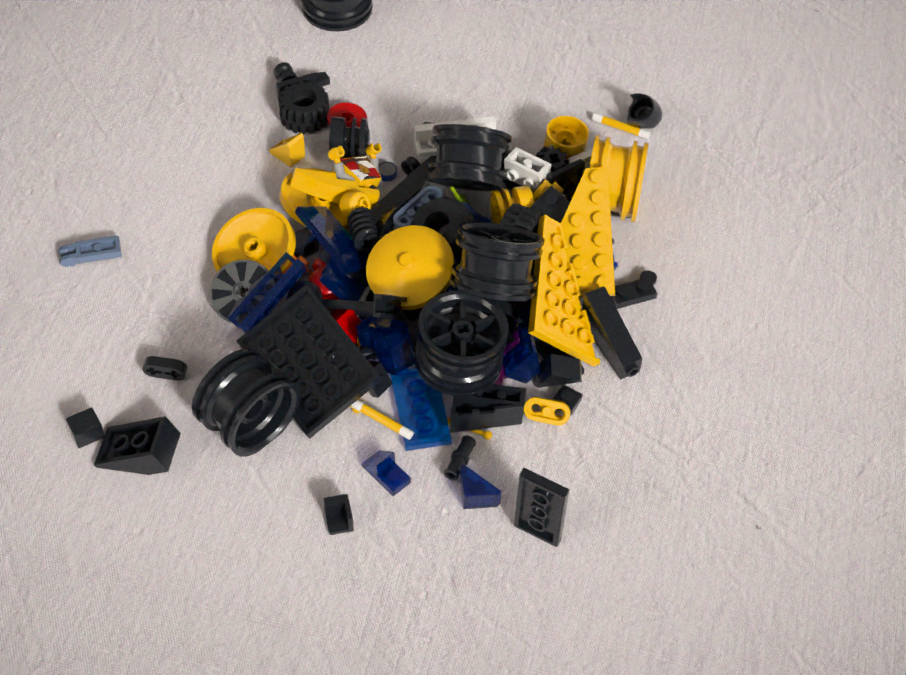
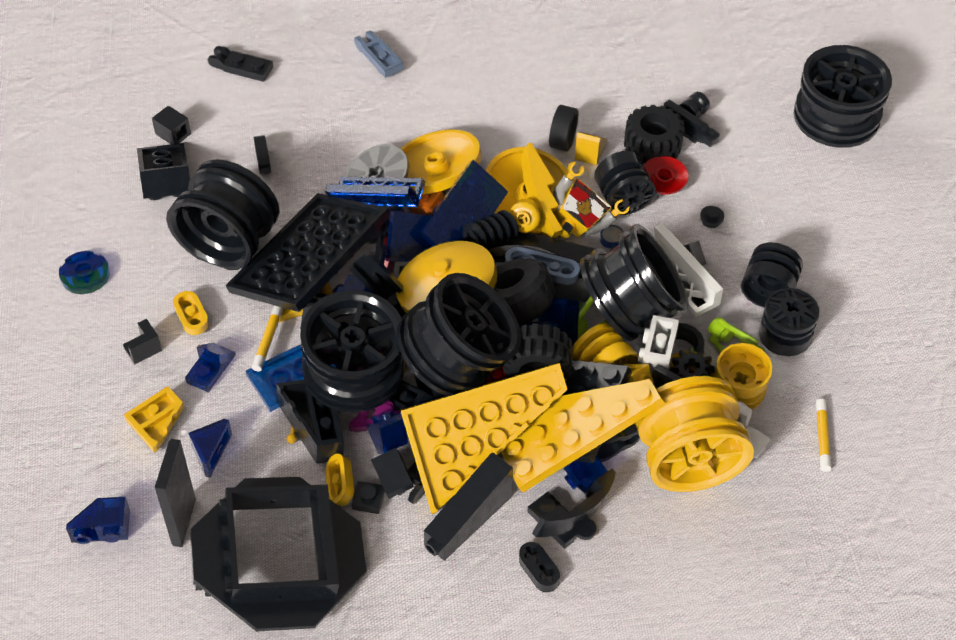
camera: 70 degrees right, 0 degrees up
(32, 356) = (240, 63): none -> black hinge
(226, 544) = (84, 272): none -> clear blue tile
(266, 155) = (563, 127): none -> black tyre
(323, 469) = (192, 314): none -> yellow plate
(399, 108) = (711, 216): none -> black plate
(427, 524) = (155, 417): none -> yellow wing
(460, 457) = (250, 420): black pin -> none
(482, 92) = (770, 269): none -> black wheel
(519, 586) = (101, 521): none -> clear blue slope
(523, 132) = (723, 331): none -> lime plant
(526, 101) = (788, 322): none -> black wheel
(598, 497) = (287, 603): none -> black hinge
(640, 265) = (560, 521): none -> black slope
(644, 112) = (853, 451): black piece -> none
(669, 315) = (543, 563): none -> black beam

